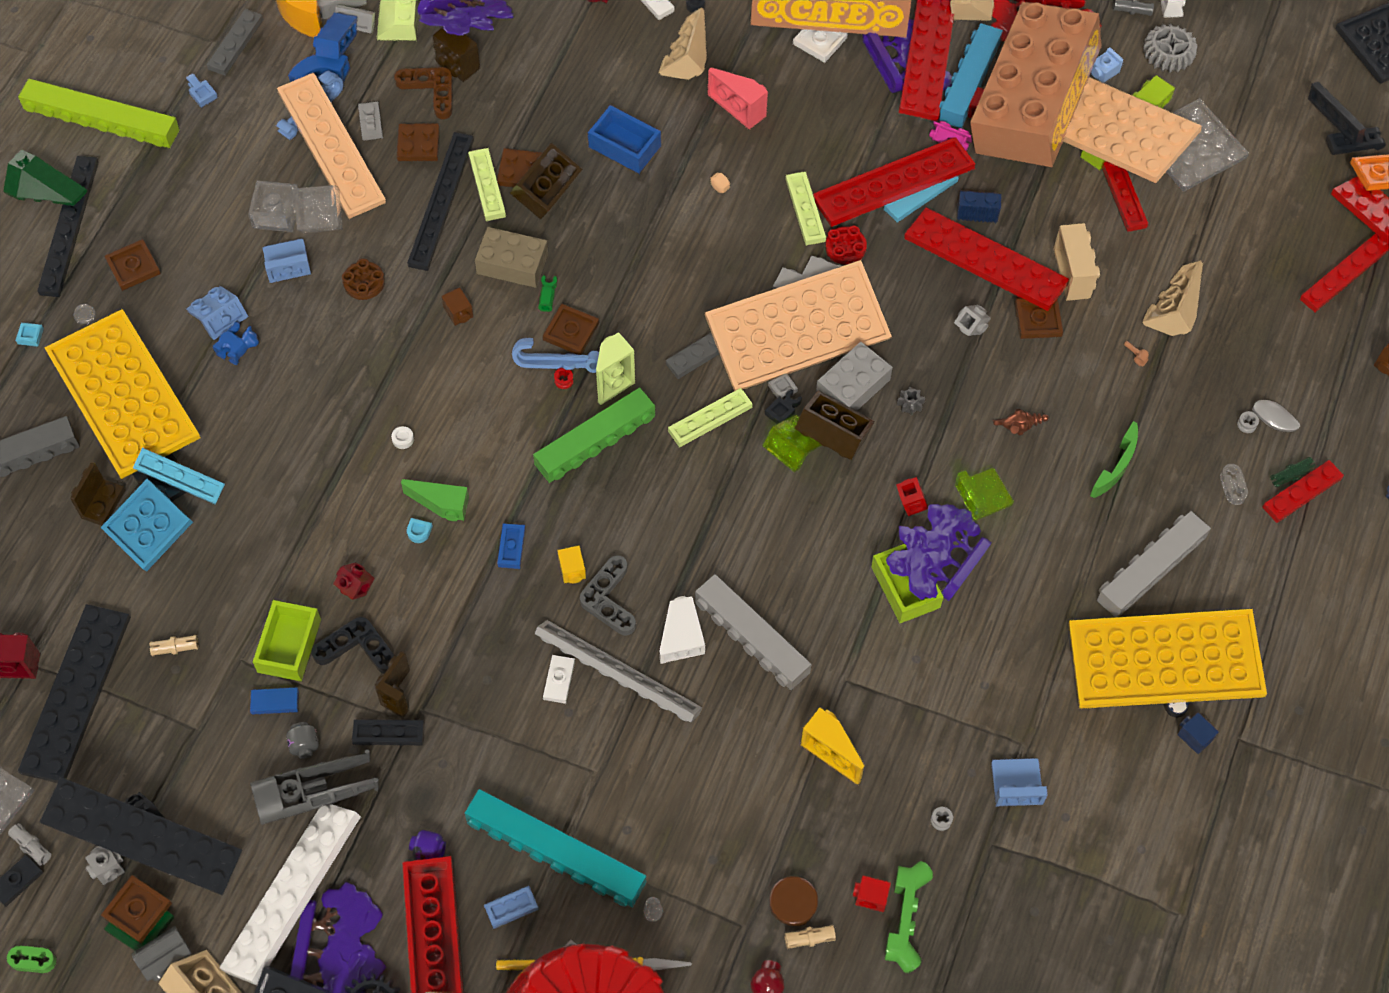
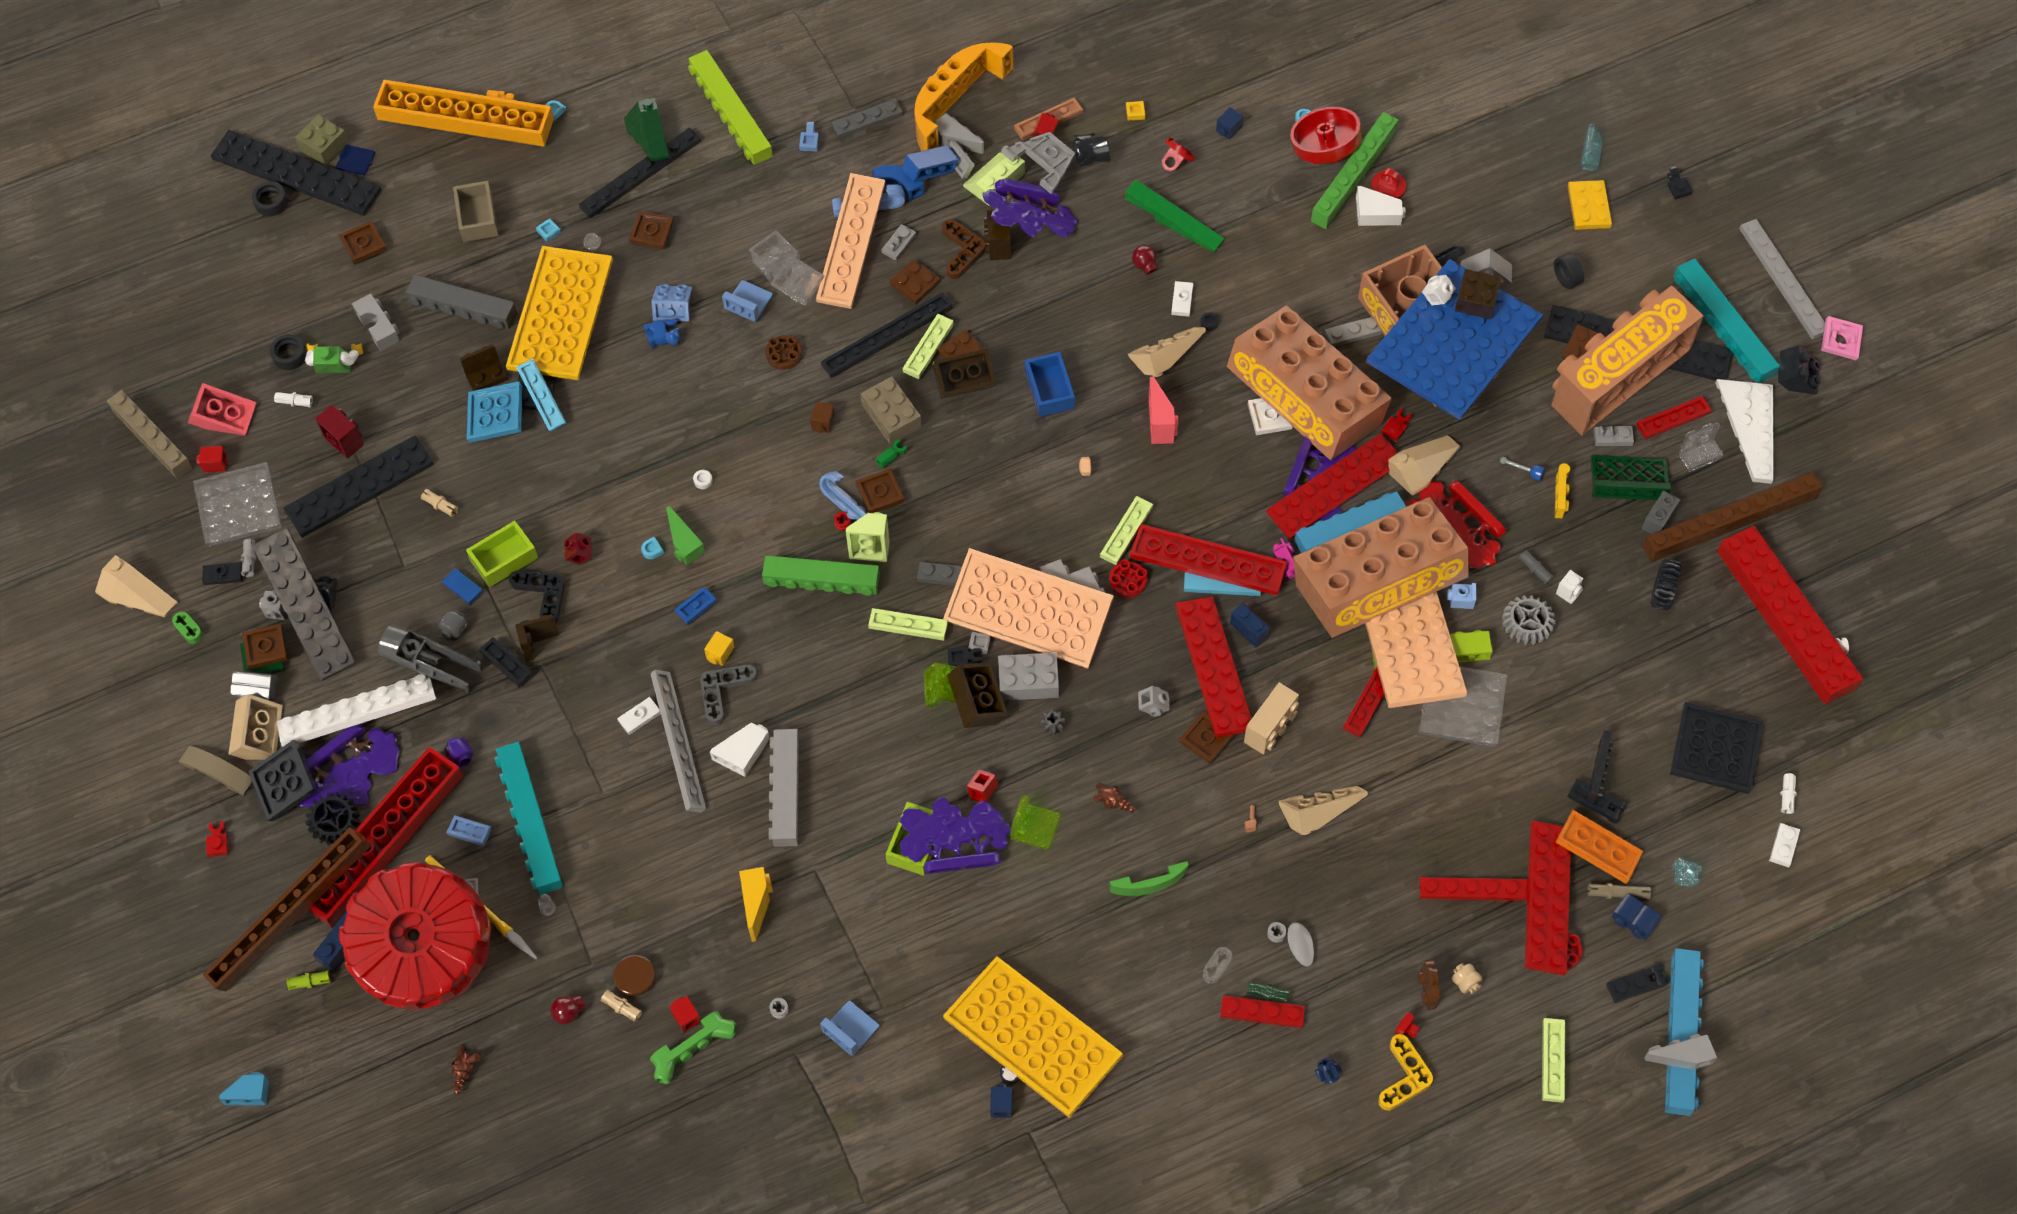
camera: 45 degrees right, 0 degrees up
(1153, 564) = (1096, 969): light grey brick -> none

